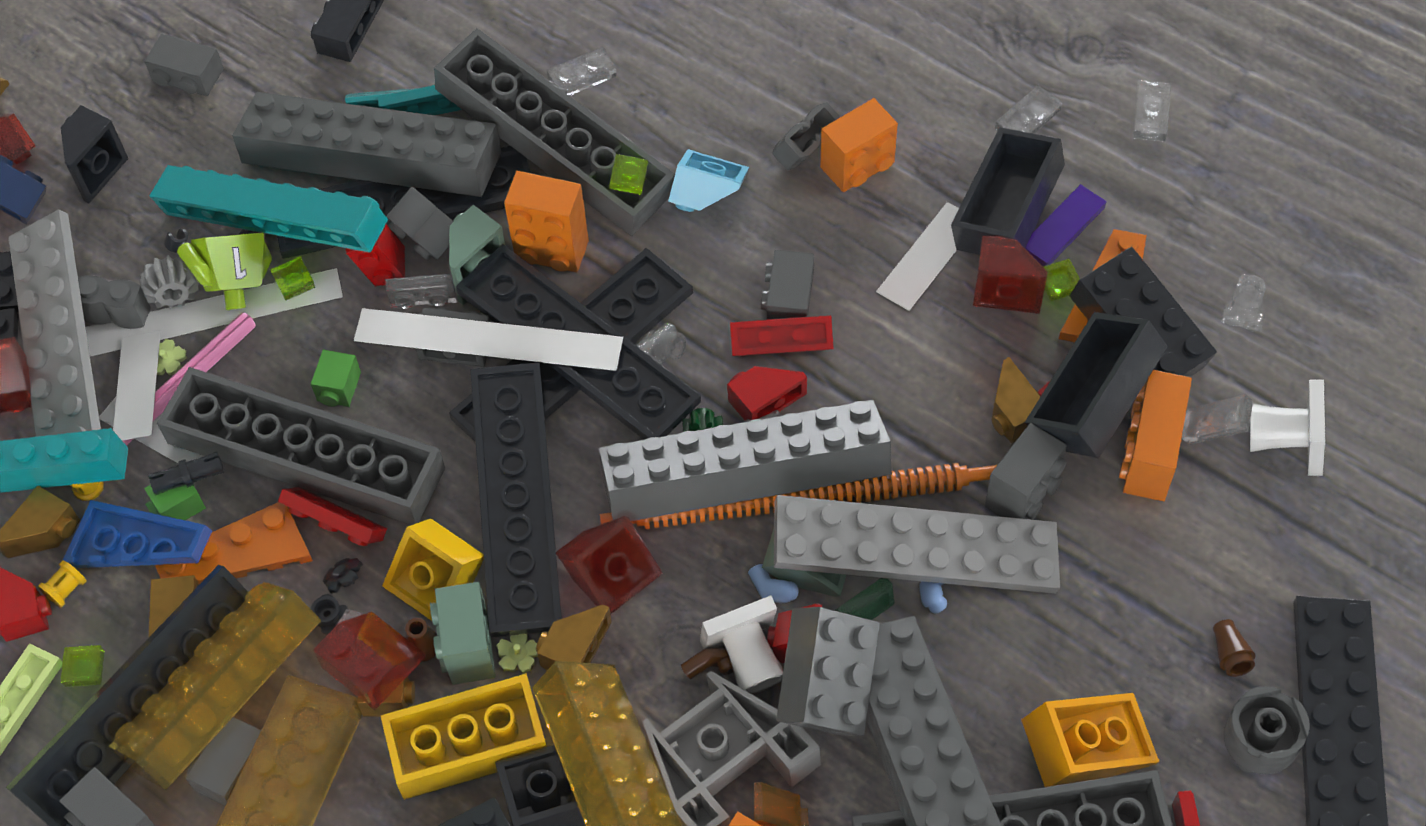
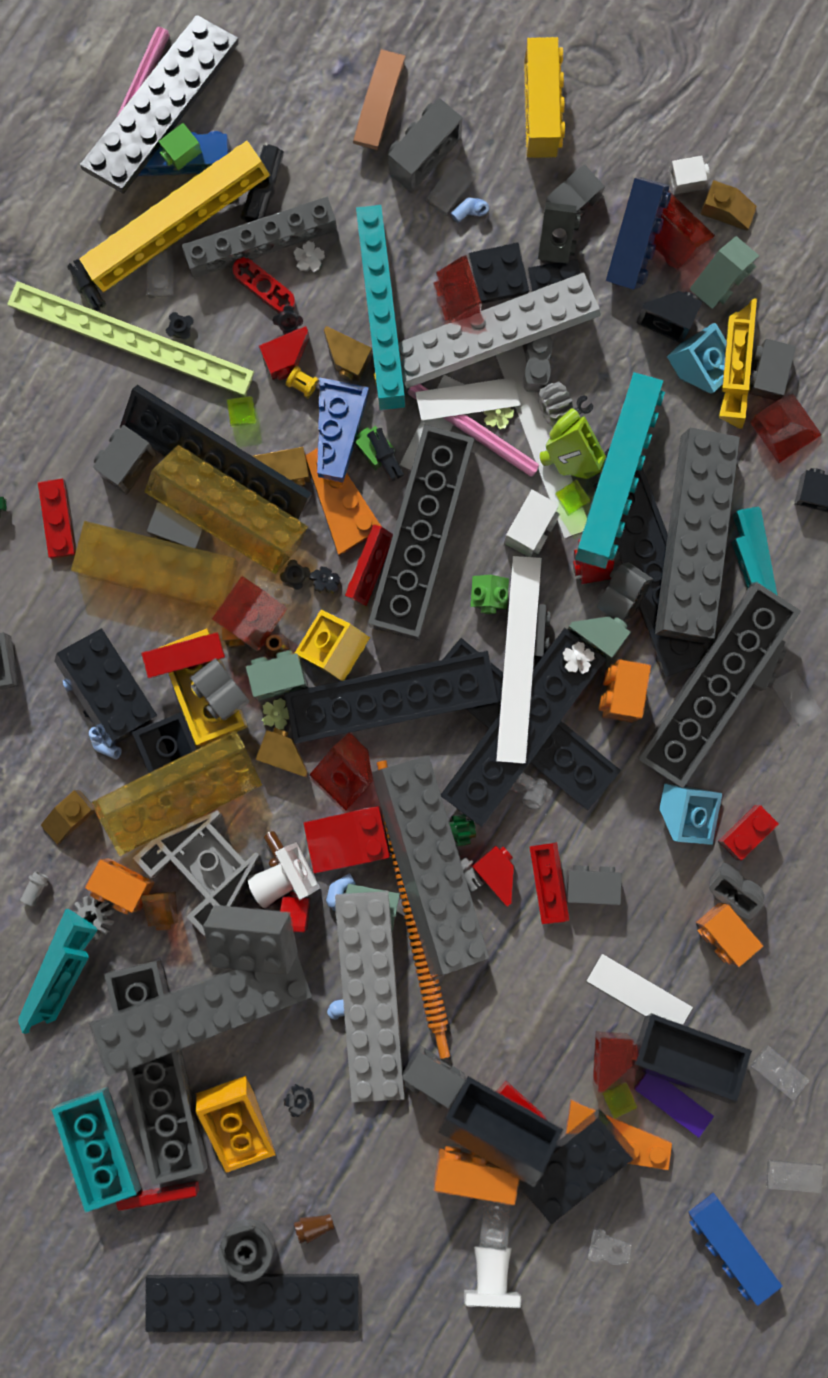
camera: 85 degrees right, 25 degrees up
(51, 95) = (728, 267): none -> sand green brick
(152, 129) = (701, 359): none -> medium azure slope
(169, 91) = (738, 365): none -> yellow wedge
(258, 62) = (785, 427): none -> clear red slope
(315, 314) = (530, 524): none -> white brick
(335, 378) = (484, 547): bright green brick -> none
(397, 374) = (489, 593): none -> bright green brick
(413, 746) = (183, 655): none -> red tile
(420, 291) = (564, 588): clear plate -> none
(470, 695) = (219, 690): none -> dark grey brick
(497, 272) = (578, 658): none -> white plant
(628, 174) = (674, 751): clear neon green plate -> none
(700, 565) = (346, 839): none -> red slope
(737, 124) = (748, 832): none -> red brick
(870, 601) = (322, 957): clear green tile -> none
(1013, 402) = (502, 1066): pearl gold slope -> none
(1057, 655) = (298, 1100): none -> black plant
(1240, 173) = (735, 1249): none -> blue brick

